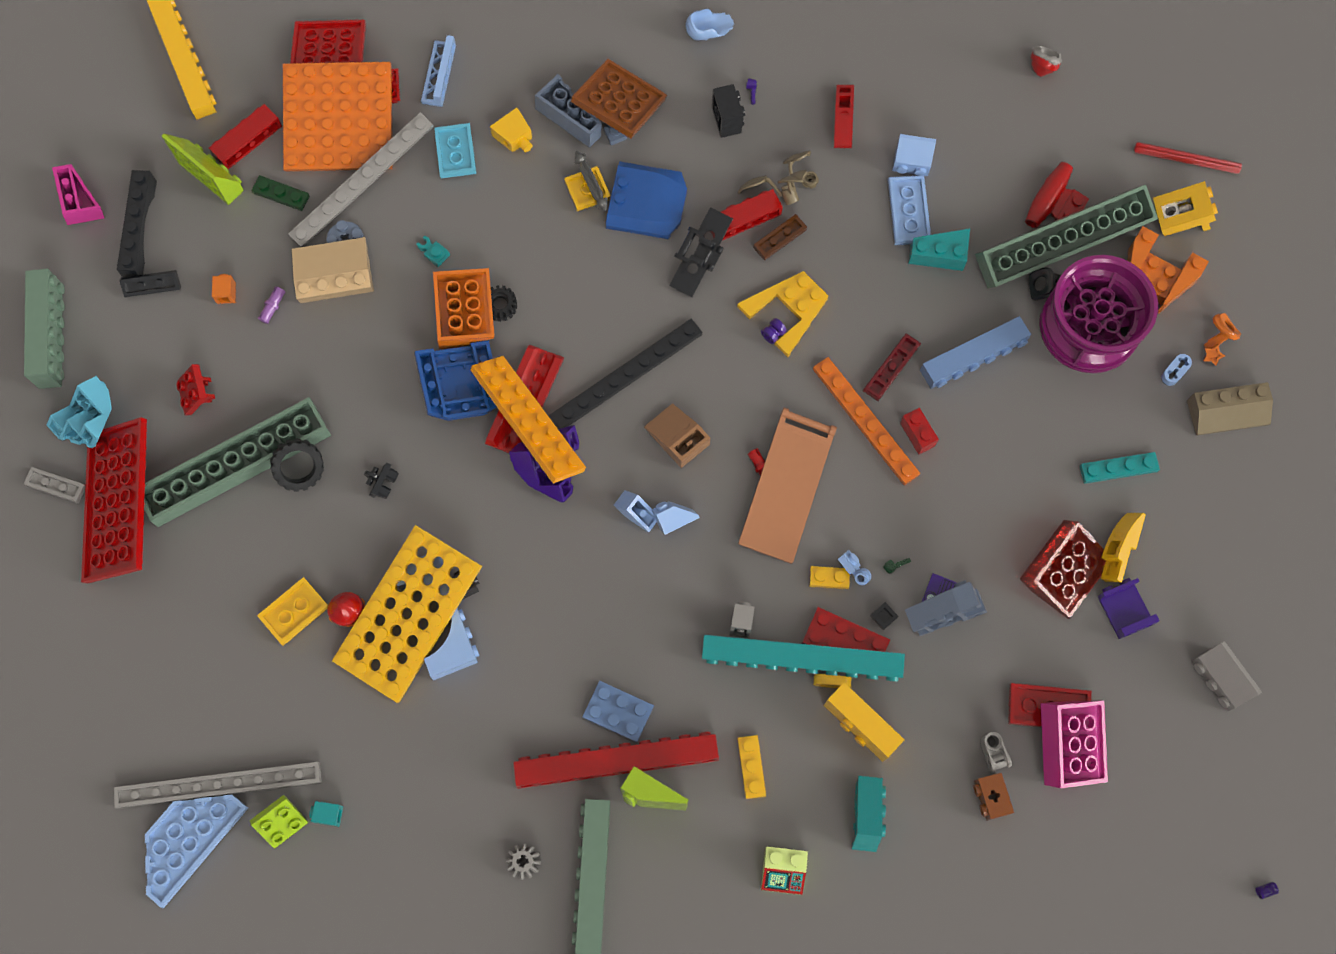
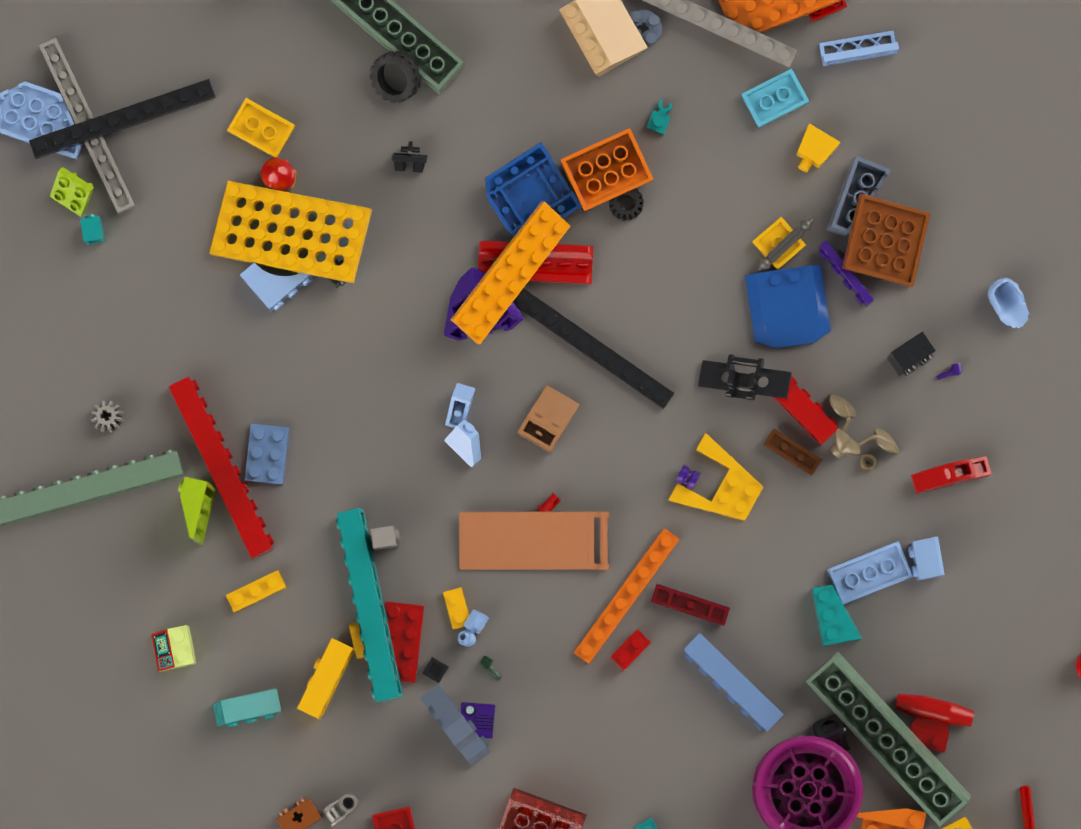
camera: 75 degrees right, 10 degrees up
(226, 748) = (122, 119): none -> black plate
(639, 141) = (850, 280): none -> dark purple plate

